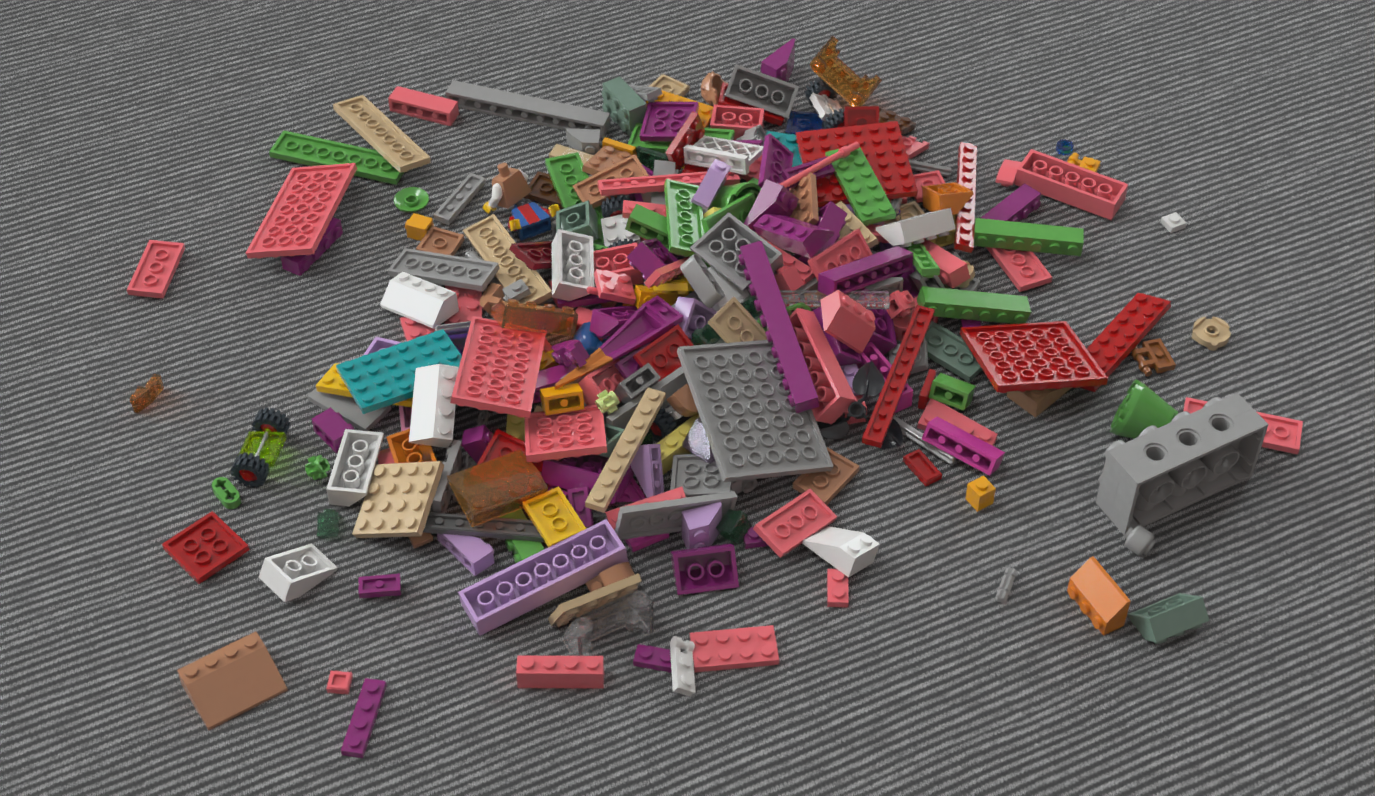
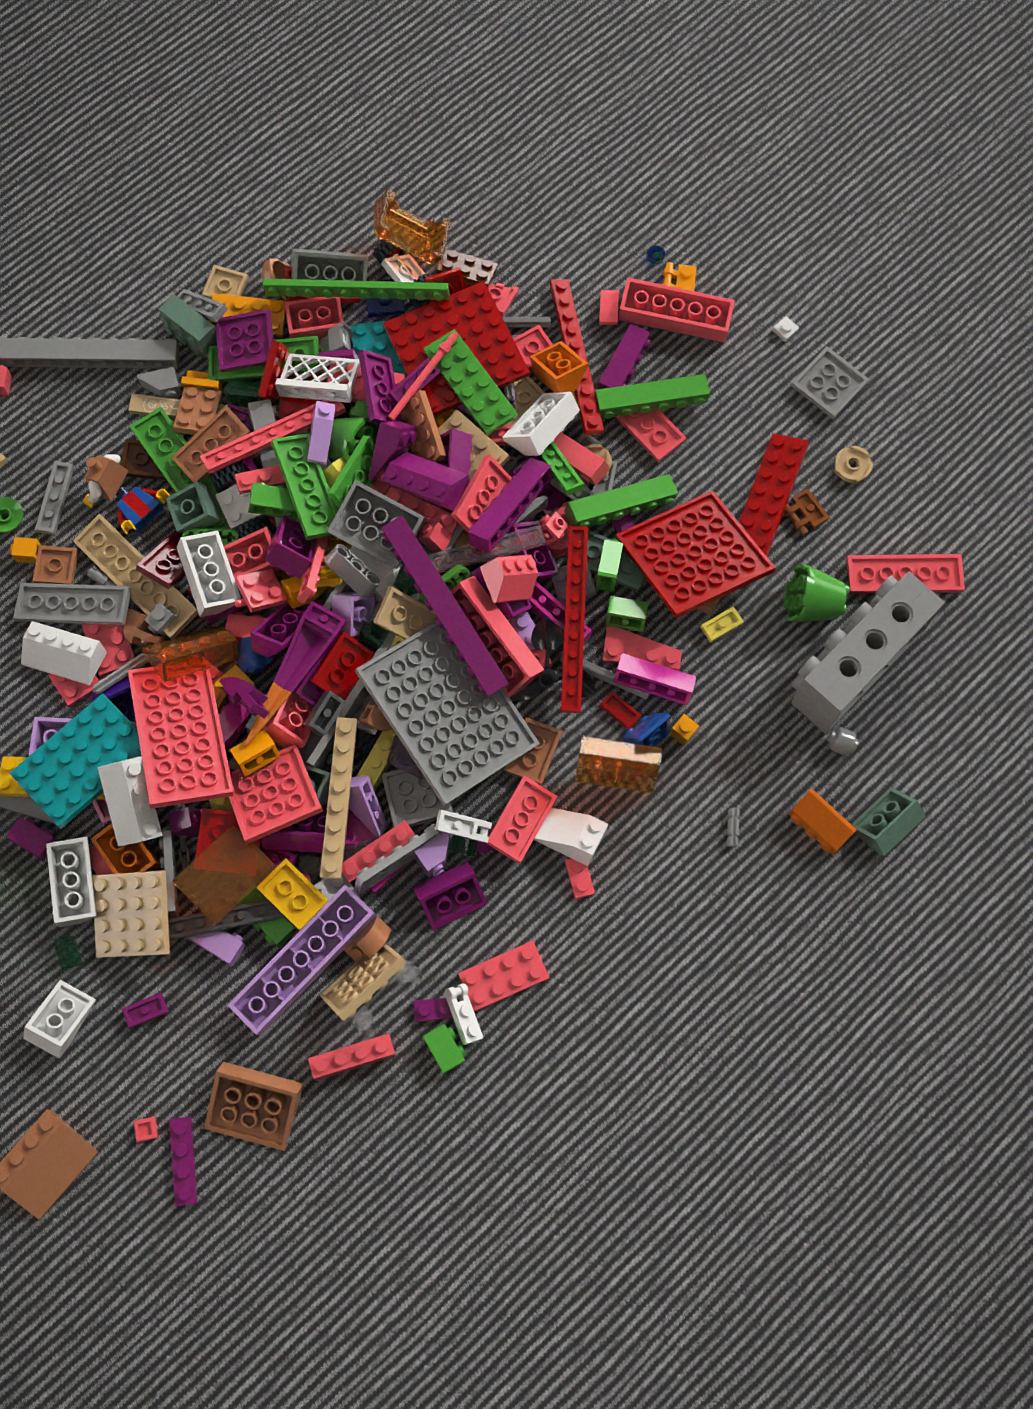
camera: 20 degrees left, 25 degrees up
(317, 467) = (32, 890): bright green gear -> none
(448, 688) = (253, 1105): none -> nougat slope
(577, 500) = (310, 866): magenta plate -> none
(607, 402) = (302, 747): yellowish green gear -> none
(653, 690) = (444, 1048): none -> bright green brick
(736, 501) = (462, 826): none -> white plate
(780, 62) = (334, 230): magenta slope -> none
(781, 102) = (356, 289): none -> bright green plate
(903, 497) = (618, 764): none -> clear orange slope
(925, 391) = (601, 615): red tile -> none
(942, 483) = (650, 730): none -> blue slope
(945, 348) = (609, 565): none -> slope
(1044, 423) = (722, 624): none -> light yellow plate
(1205, 268) = (830, 382): none -> light grey plate

